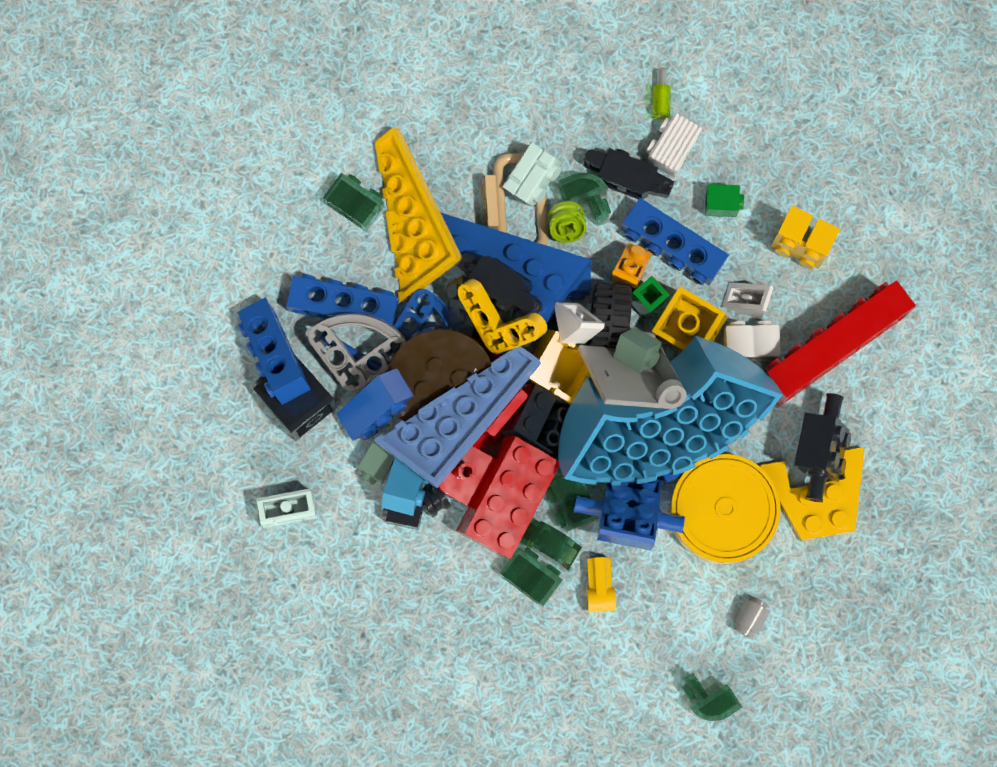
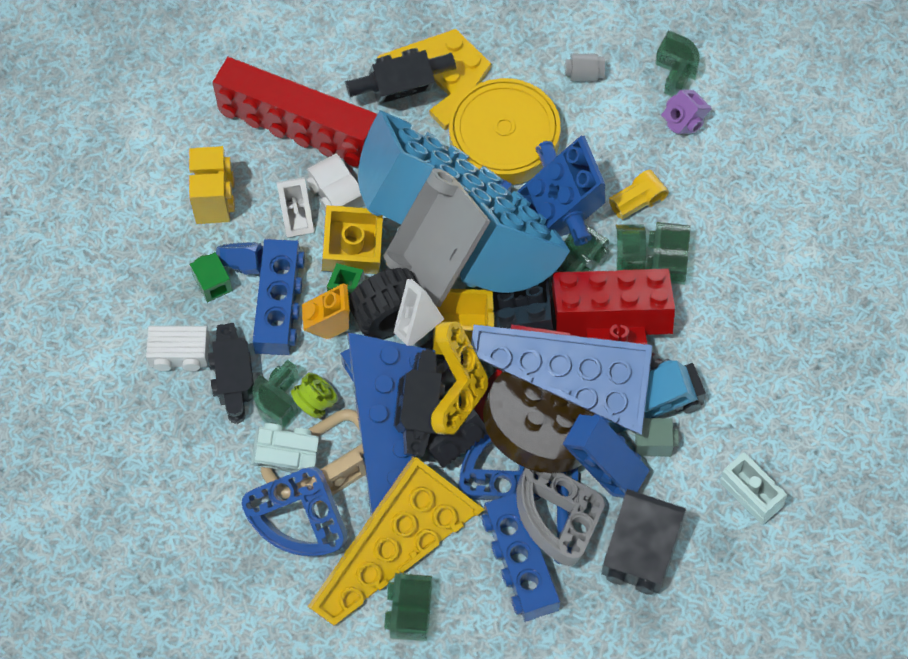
camera: 115 degrees left, 15 degrees down
(273, 351) = (582, 620): blue brick -> none
(446, 171) = (309, 498): none -> blue beam
(637, 350) = (411, 249): sand green brick -> none
(653, 673) = (685, 112): none -> medium lavender brick
(661, 98) = (133, 385): clear neon green piece -> none
(729, 233) = (242, 257): none -> blue rock

